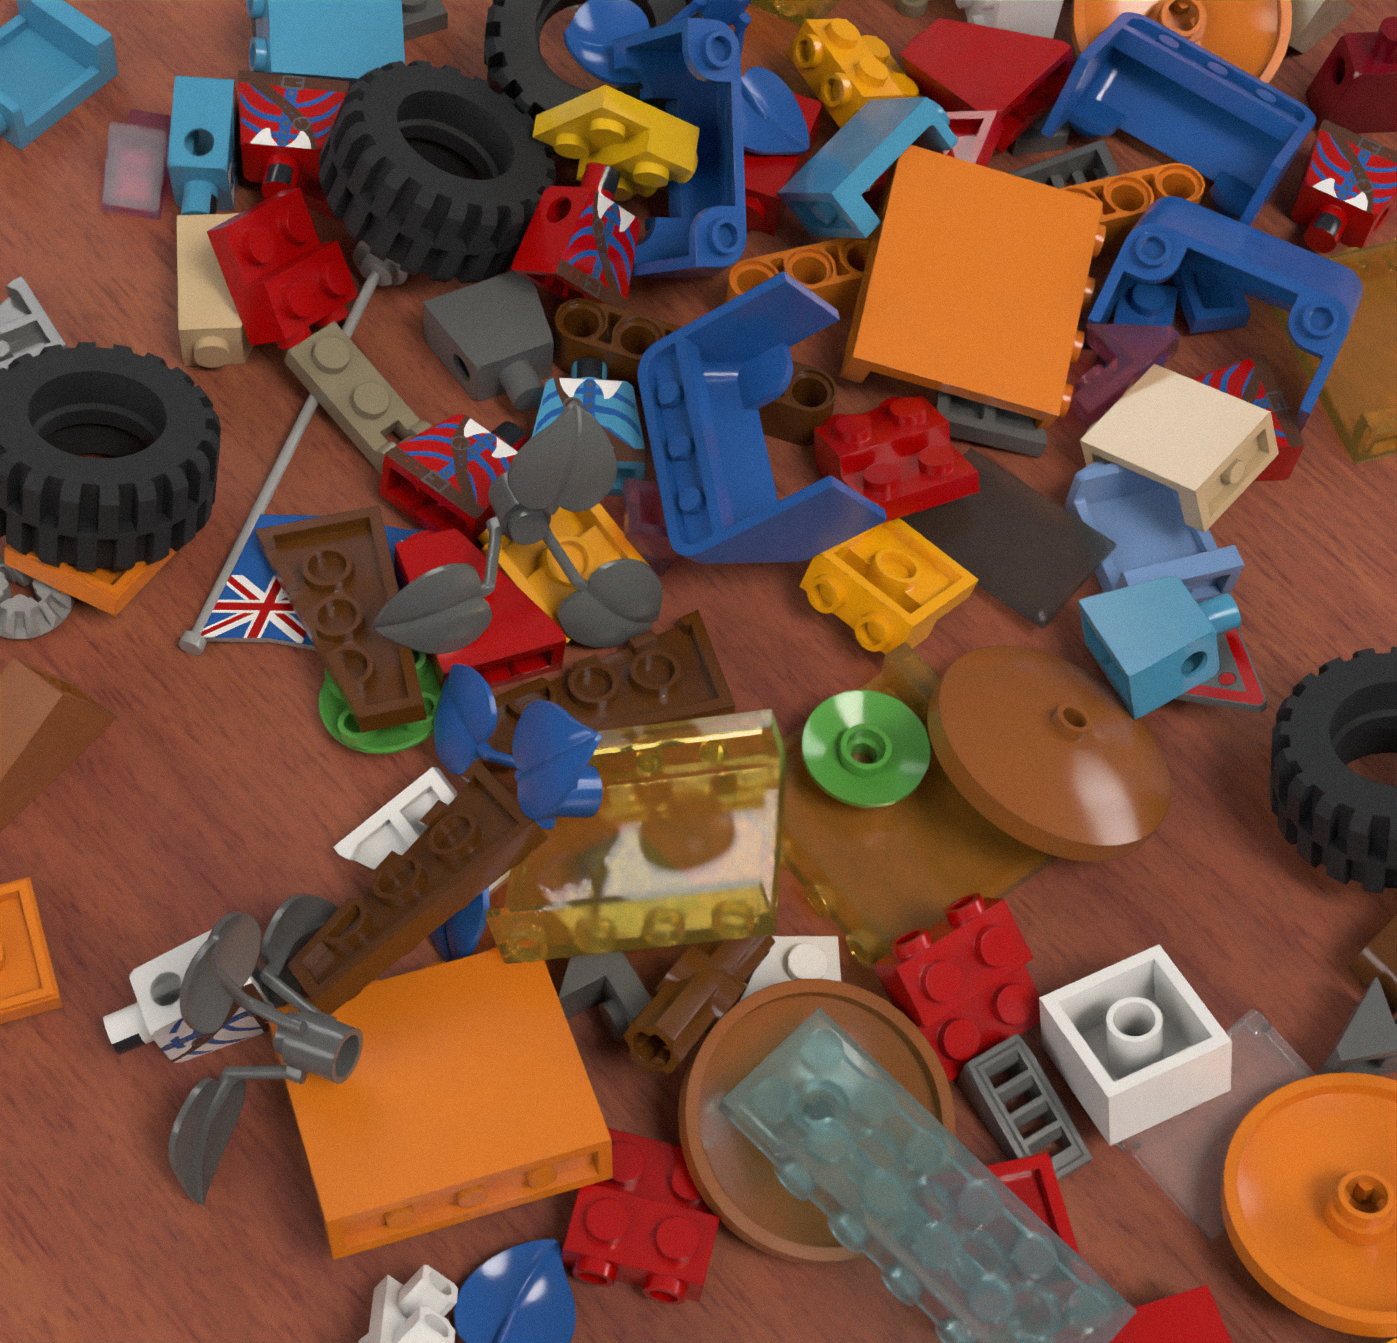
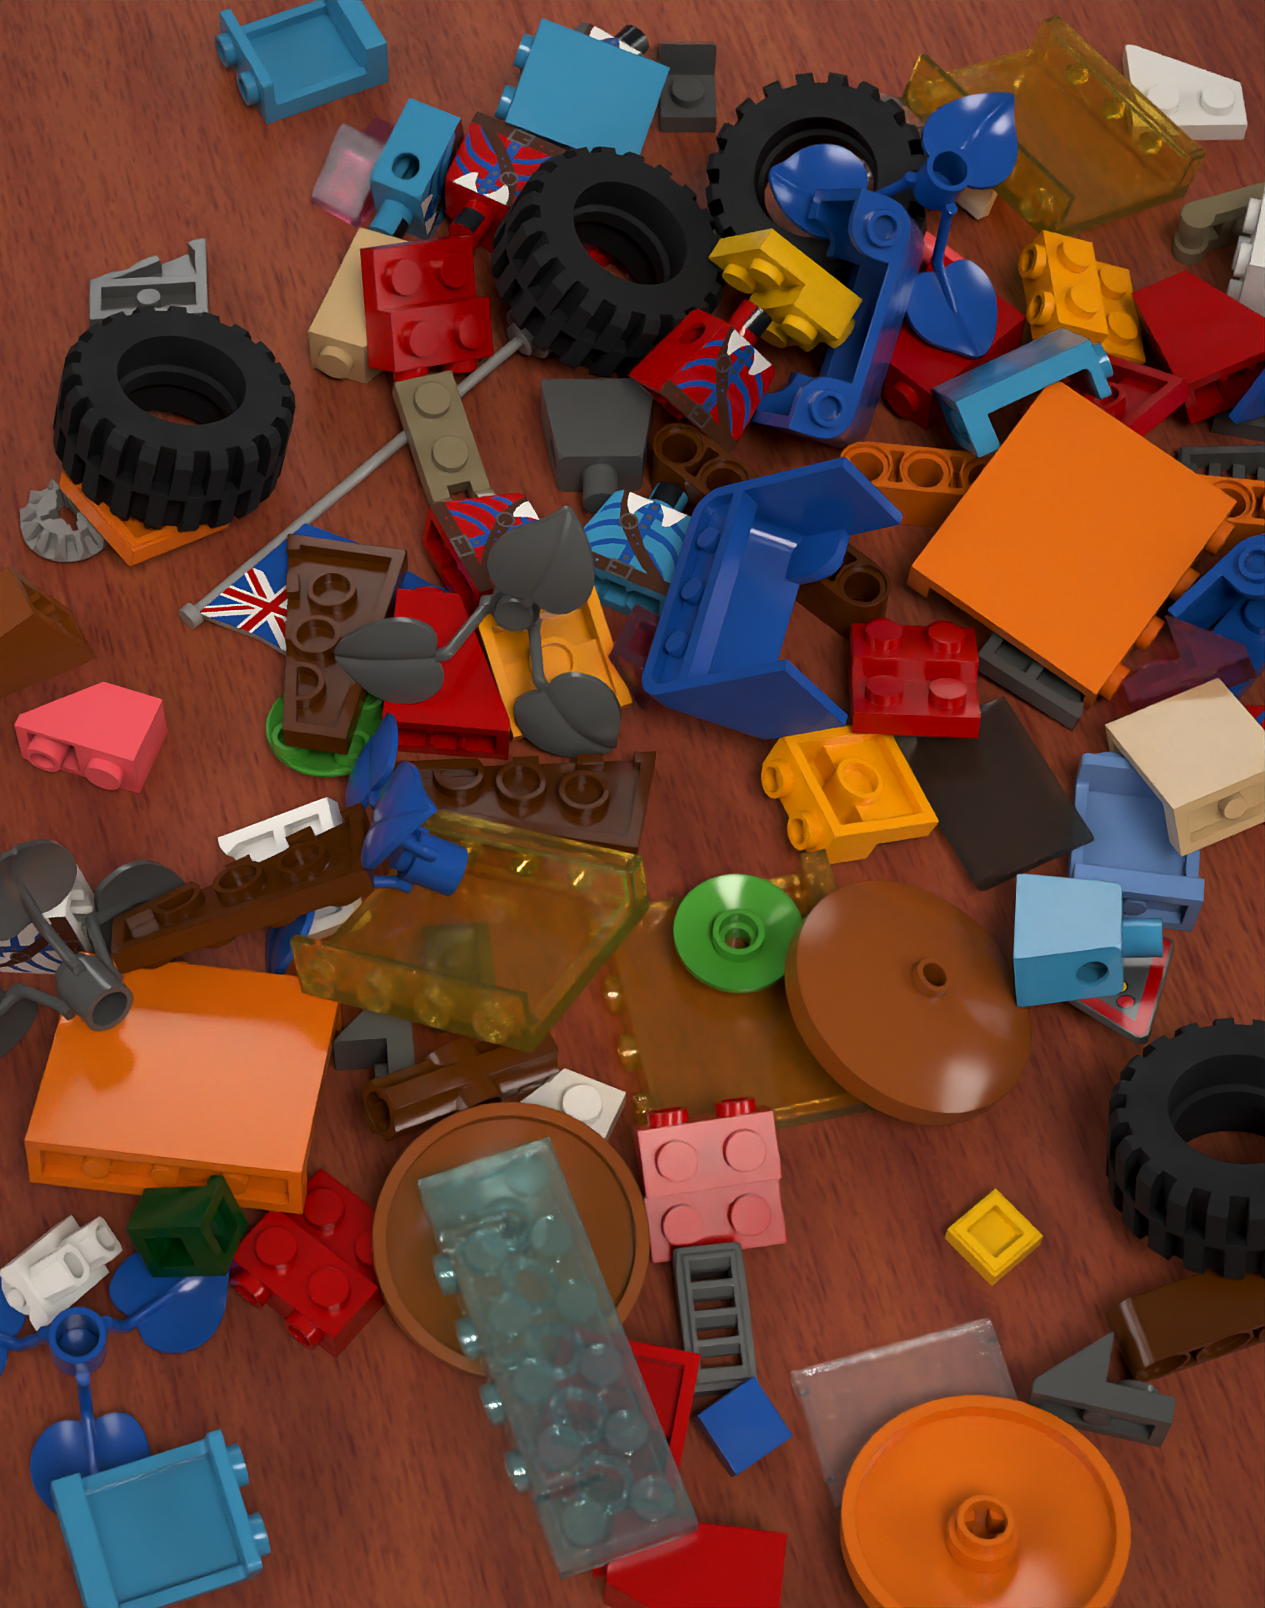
camera: 30 degrees right, 0 degrees up
(162, 792) = (96, 734): none -> coral slope
(515, 1241) = (188, 1229): none -> dark green brick
(1103, 1202) = (742, 1426): none -> blue tile
(1135, 1044) = (841, 1296): white brick -> none
(1216, 935) = (993, 1237): none -> yellow tile

